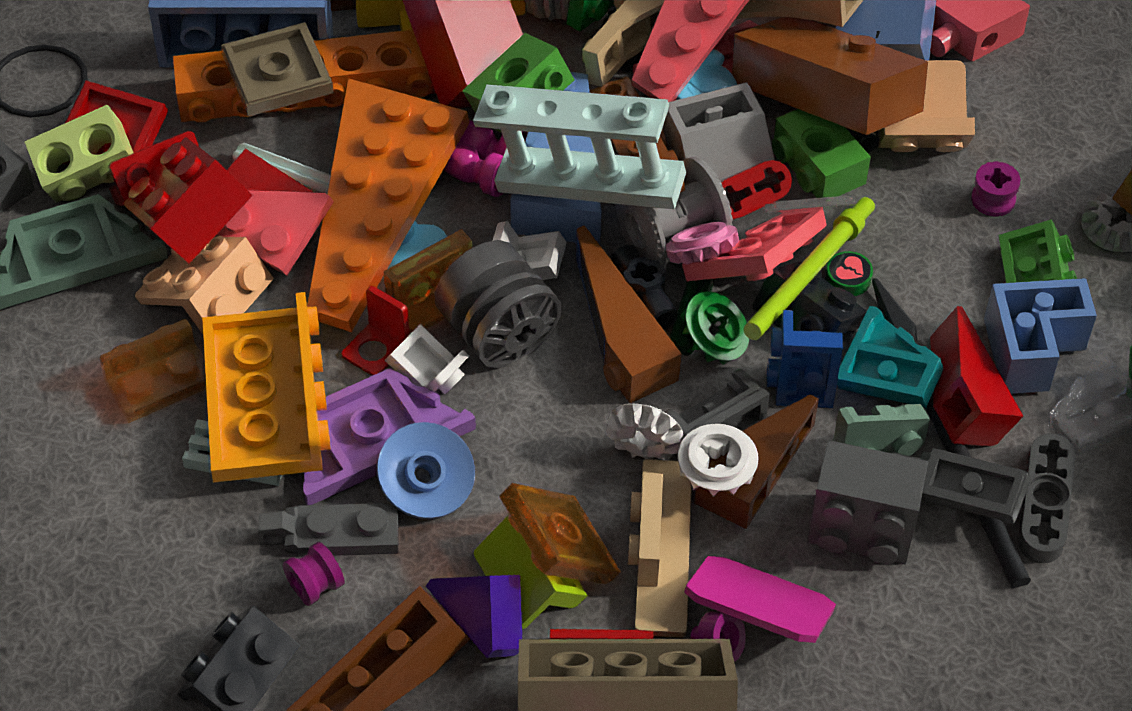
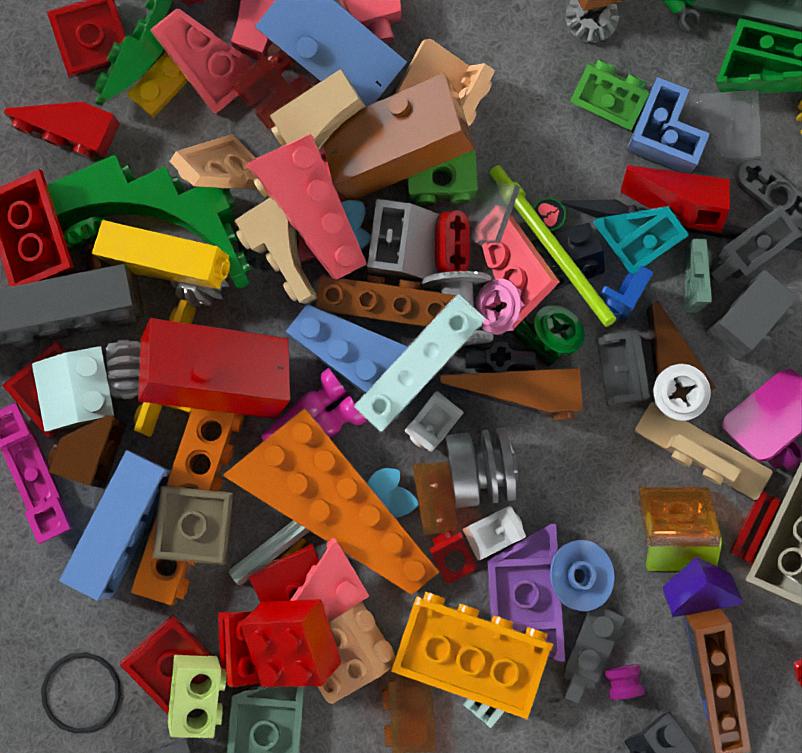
camera: 60 degrees left, 30 degrees up
(526, 65) = (300, 380): bright green brick -> none
(658, 434) = (624, 422): white gear -> none
(995, 188) = (527, 86): magenta wheel -> none

